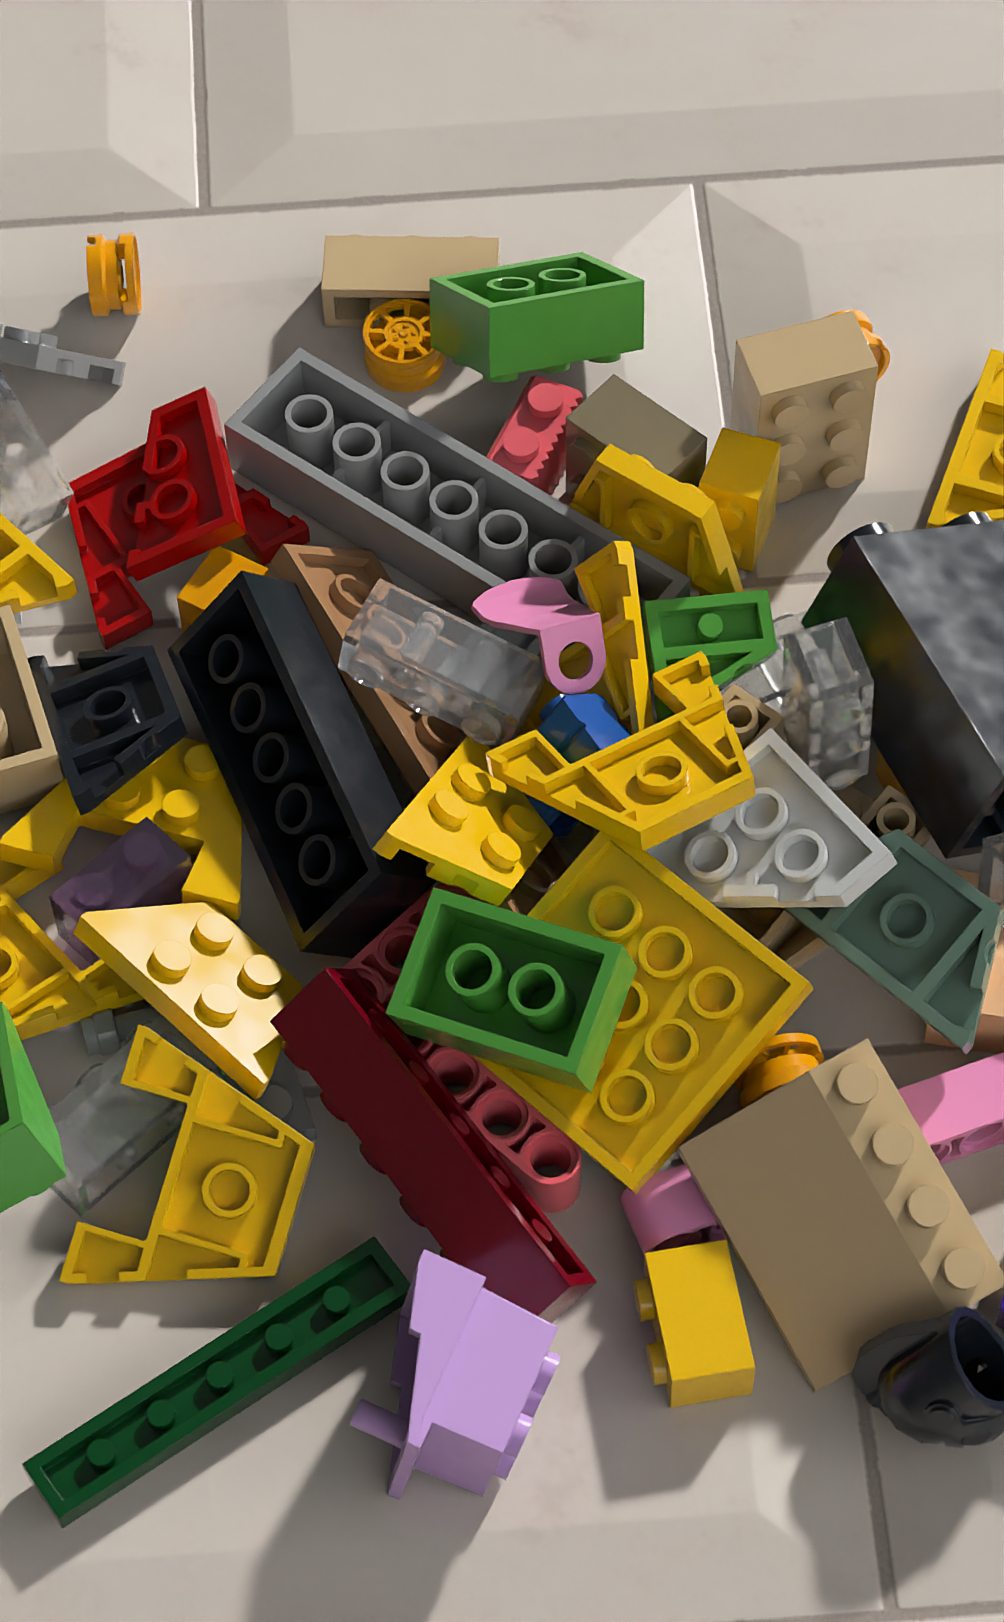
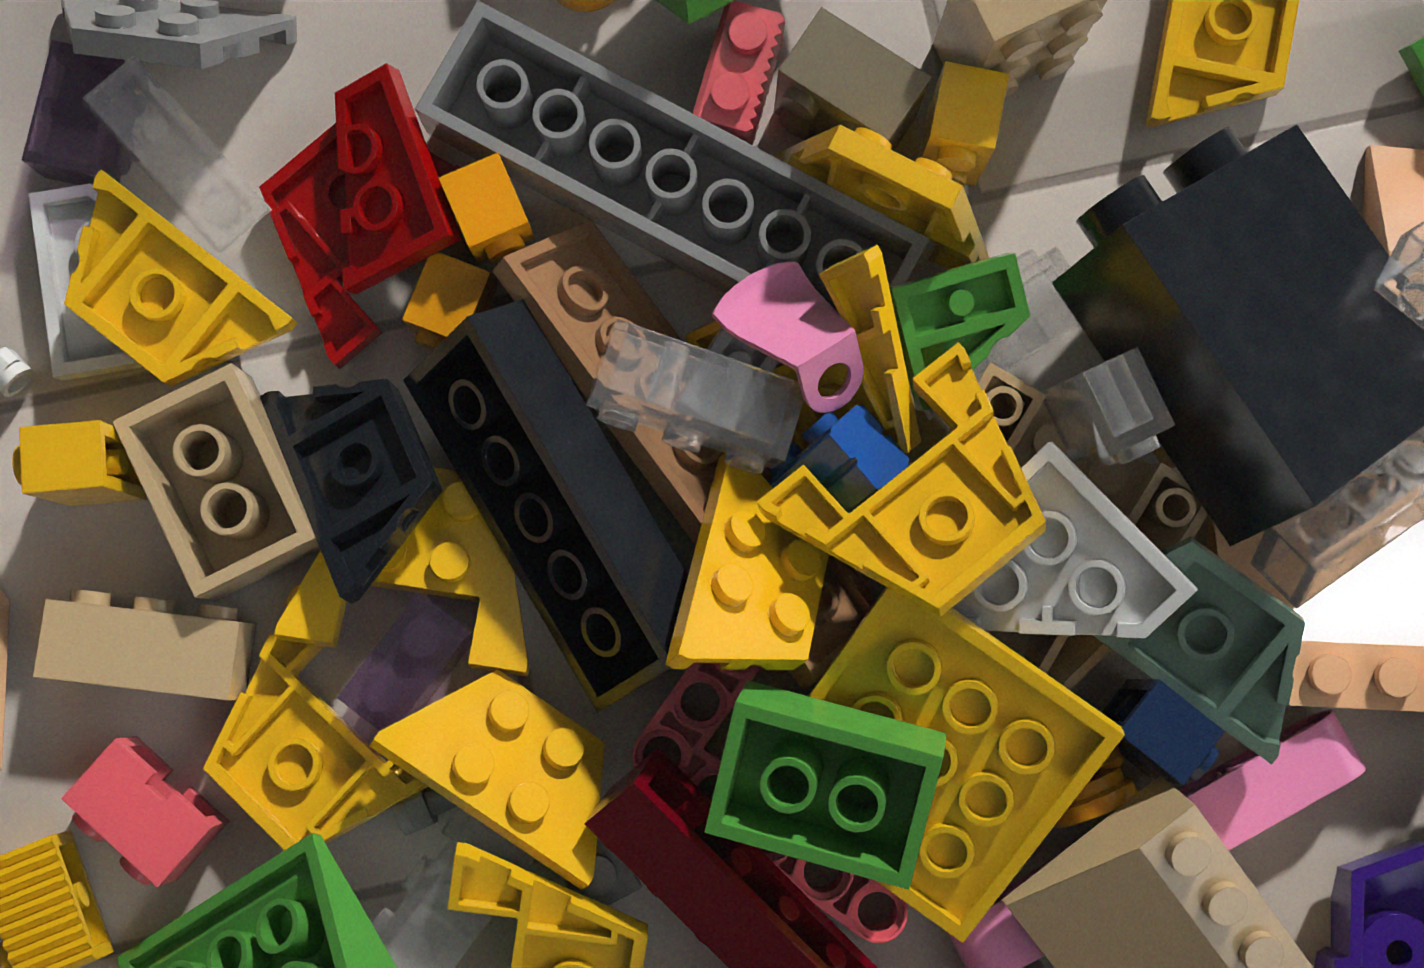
camera: 10 degrees left, 25 degrees up
(274, 510) = (487, 209): none -> light orange brick
(859, 1004) = (1163, 731): none -> dark blue brick

